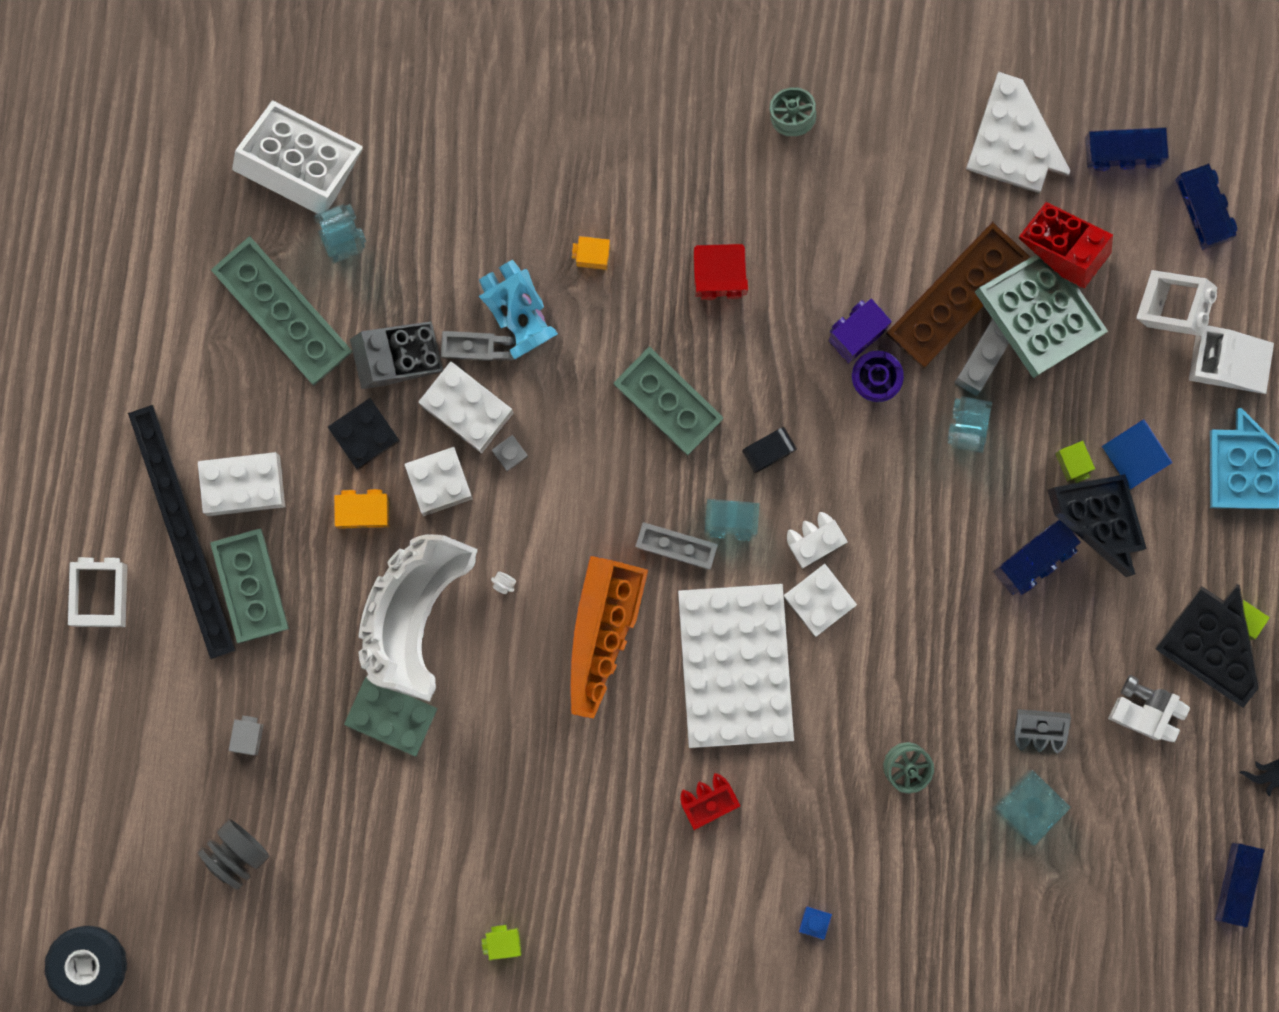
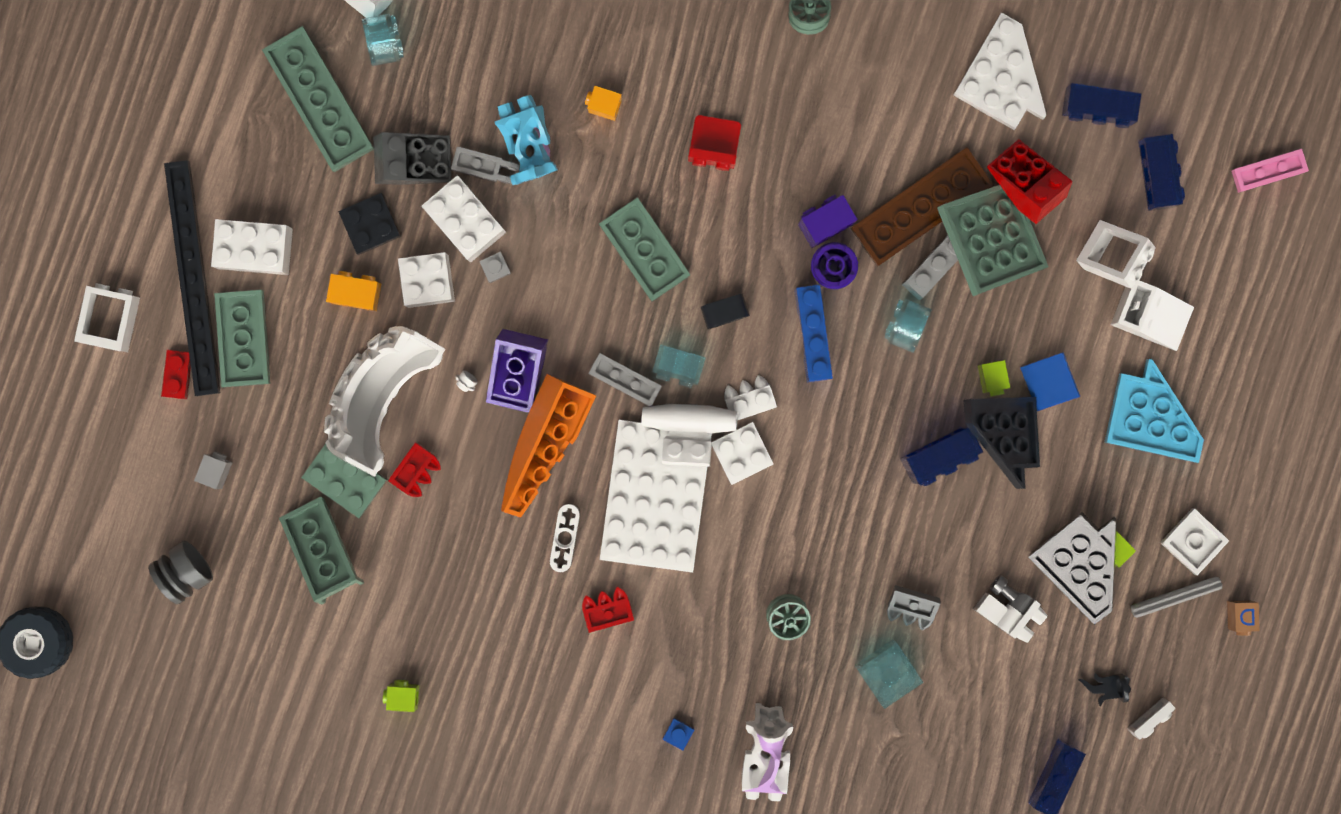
camera: 15 degrees right, 5 degrees up
(184, 640) = (176, 375): none -> red plate
(380, 799) = (319, 550): none -> sand green plate
(465, 691) = (413, 470): none -> red plate
(556, 559) = (516, 370): none -> dark purple slope
(651, 712) = (567, 556): none -> white beam
(757, 586) = (688, 430): none -> white plate
(871, 454) = (814, 333): none -> blue arch
(916, 899) = (769, 735): none -> white hips

